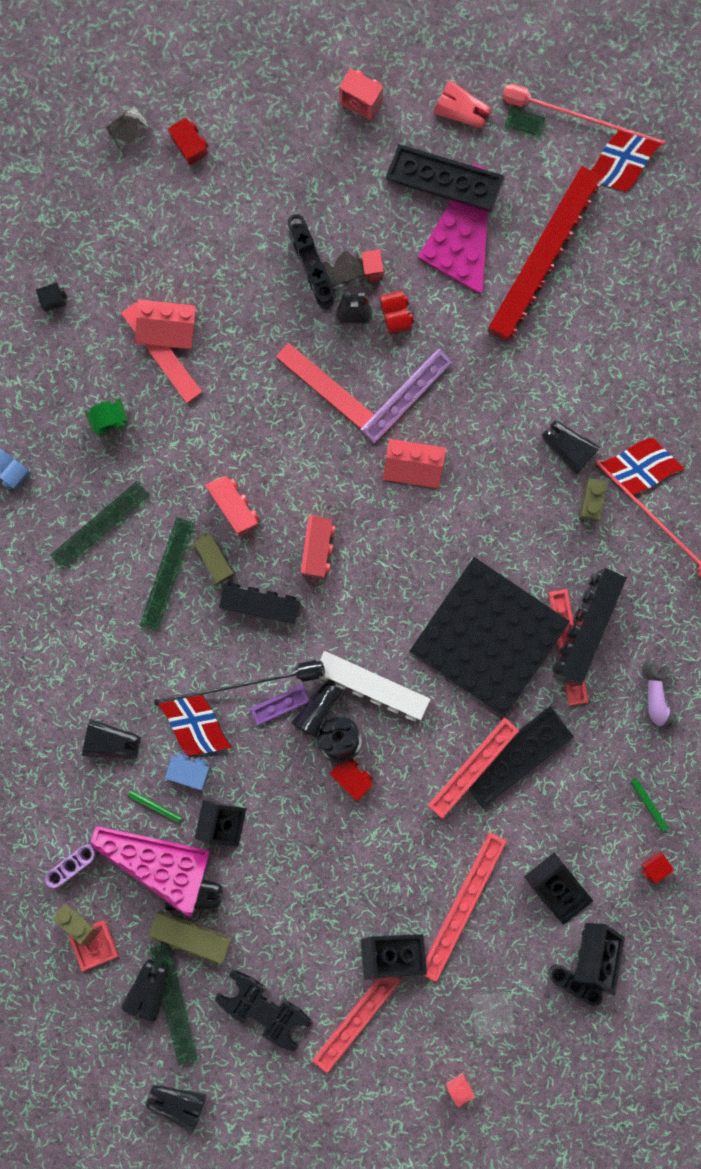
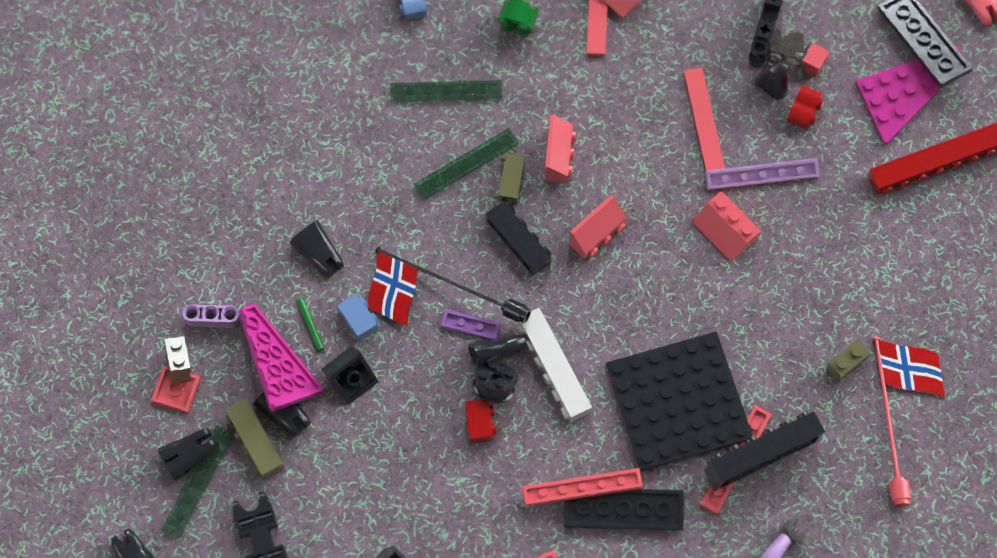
camera: 40 degrees right, 15 degrees down
(570, 446) = (863, 309): black piece -> none

